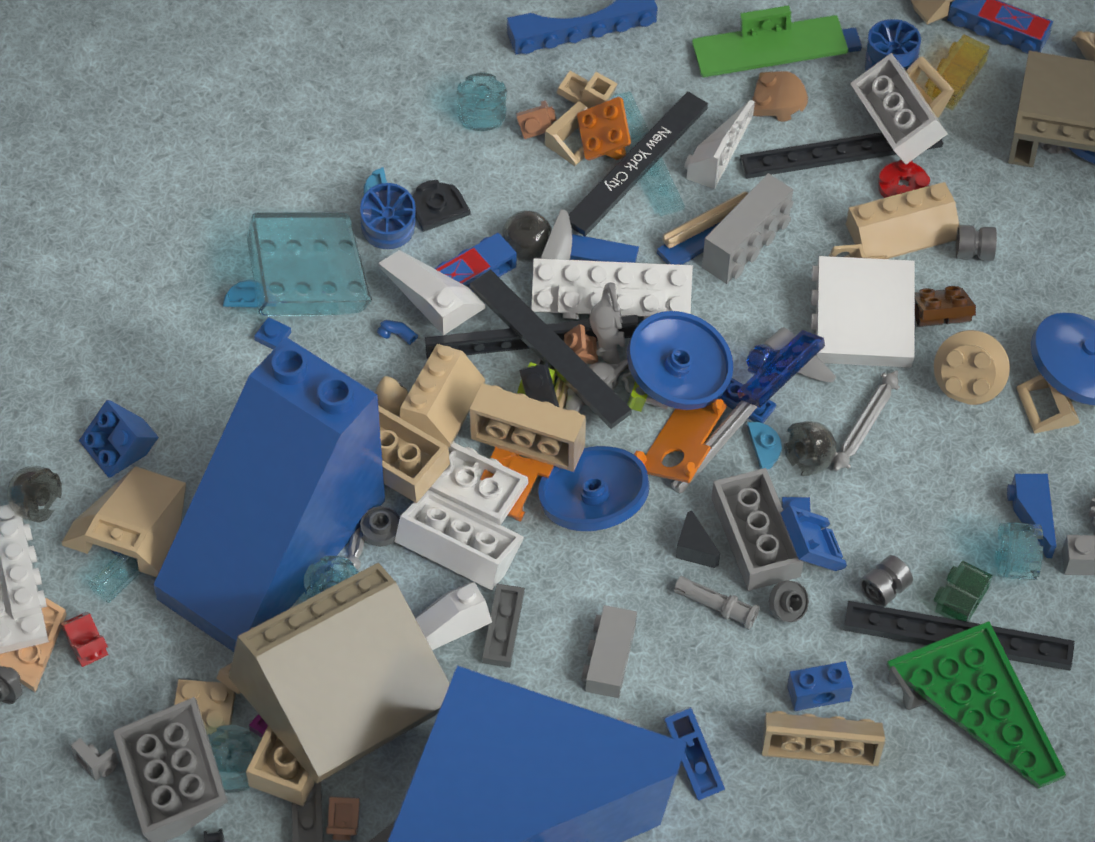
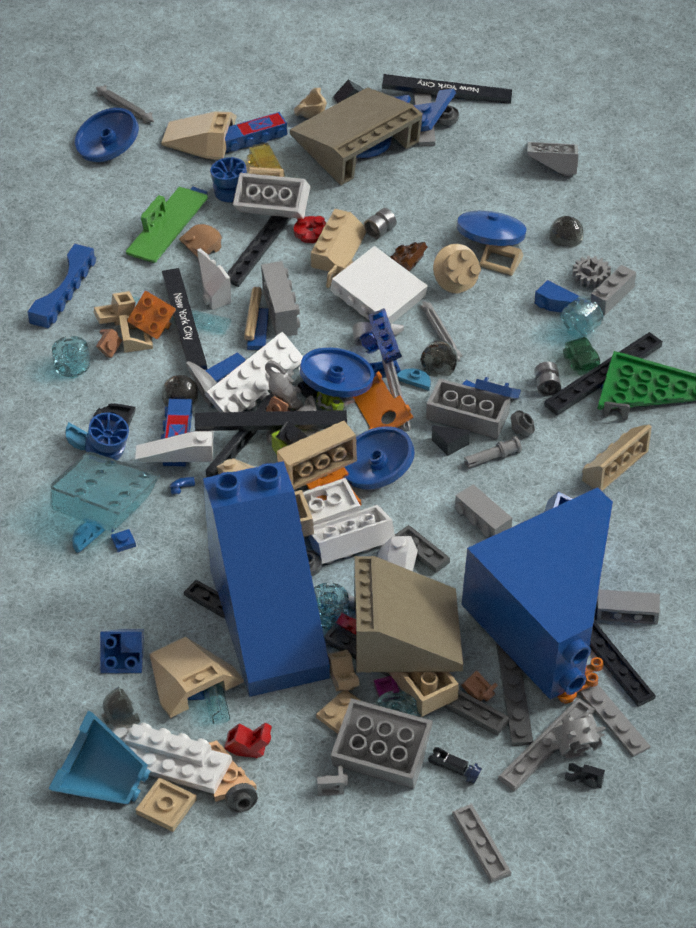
camera: 50 degrees left, 10 degrees down
(819, 686) = (585, 441): blue brick -> none

